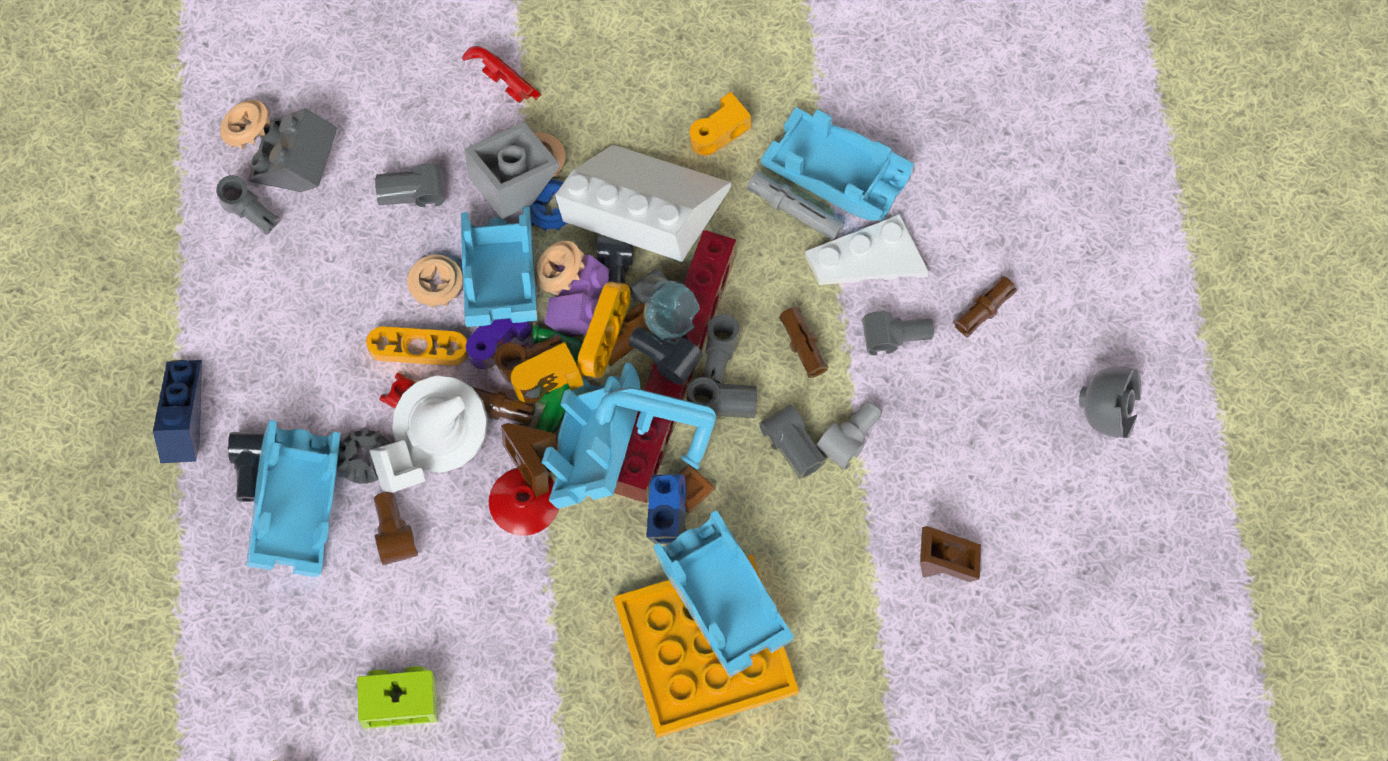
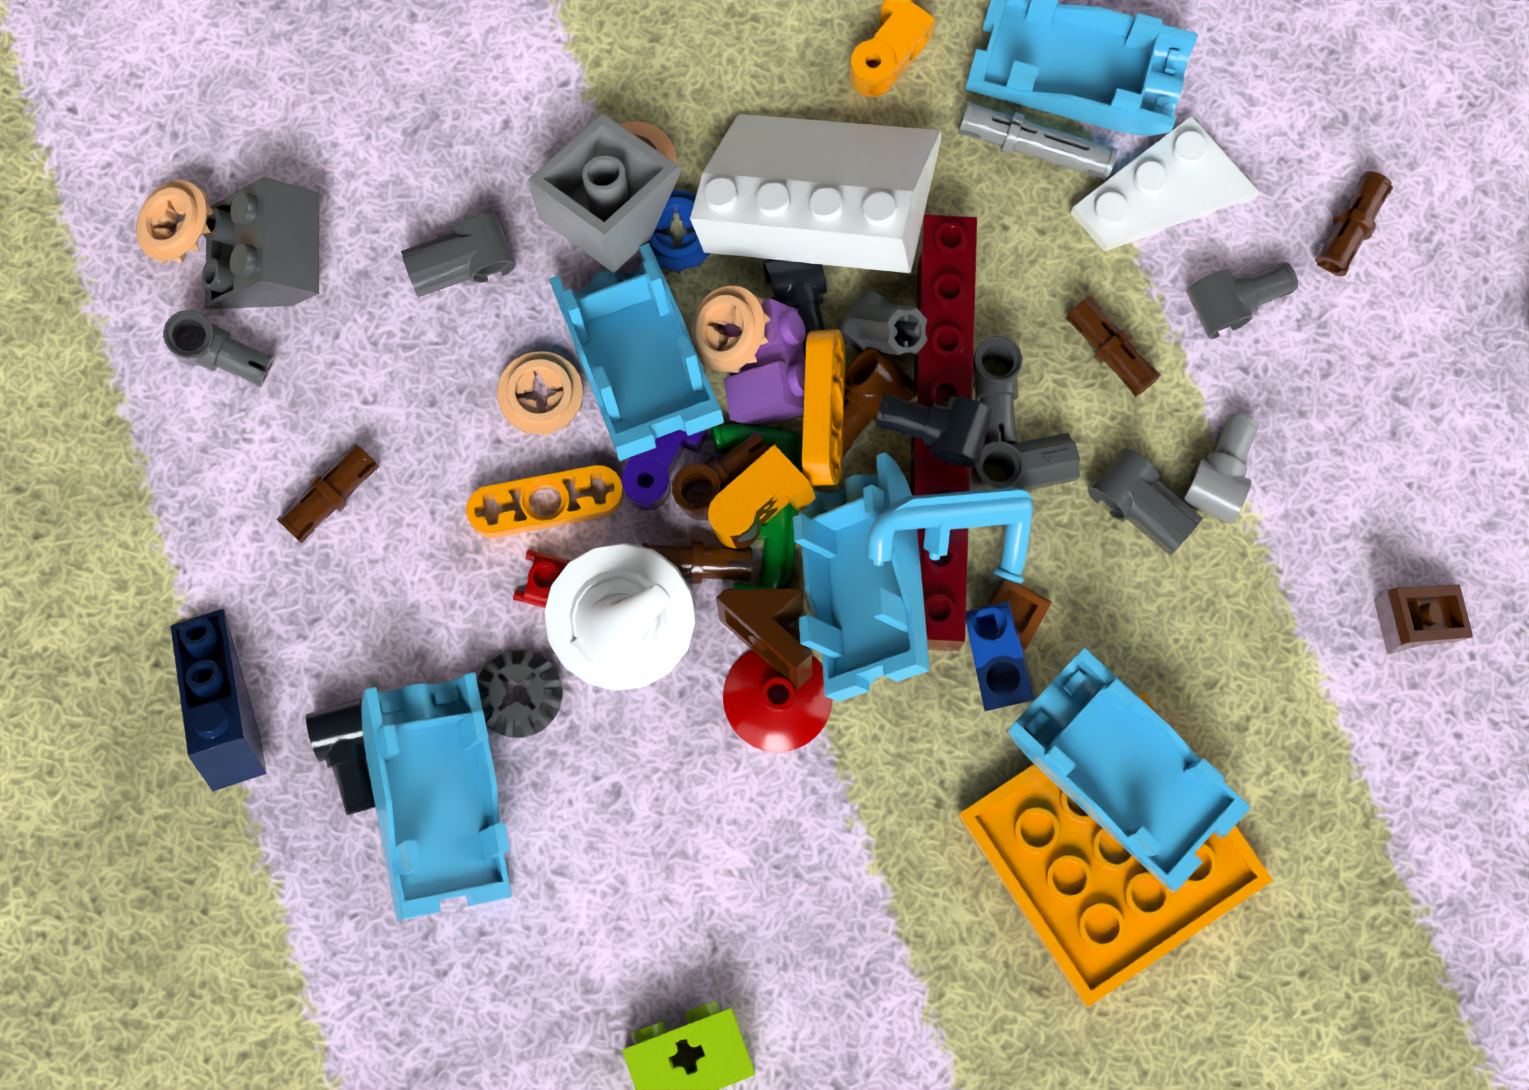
camera: 20 degrees left, 10 degrees up
(286, 307) = (328, 493): none -> reddish brown pin
(394, 537) = (605, 810): reddish brown pin -> none
(395, 467) = (575, 705): white panel -> none
(497, 69) = (531, 40): red piece -> none
(670, 311) = (925, 359): clear light blue hair -> none

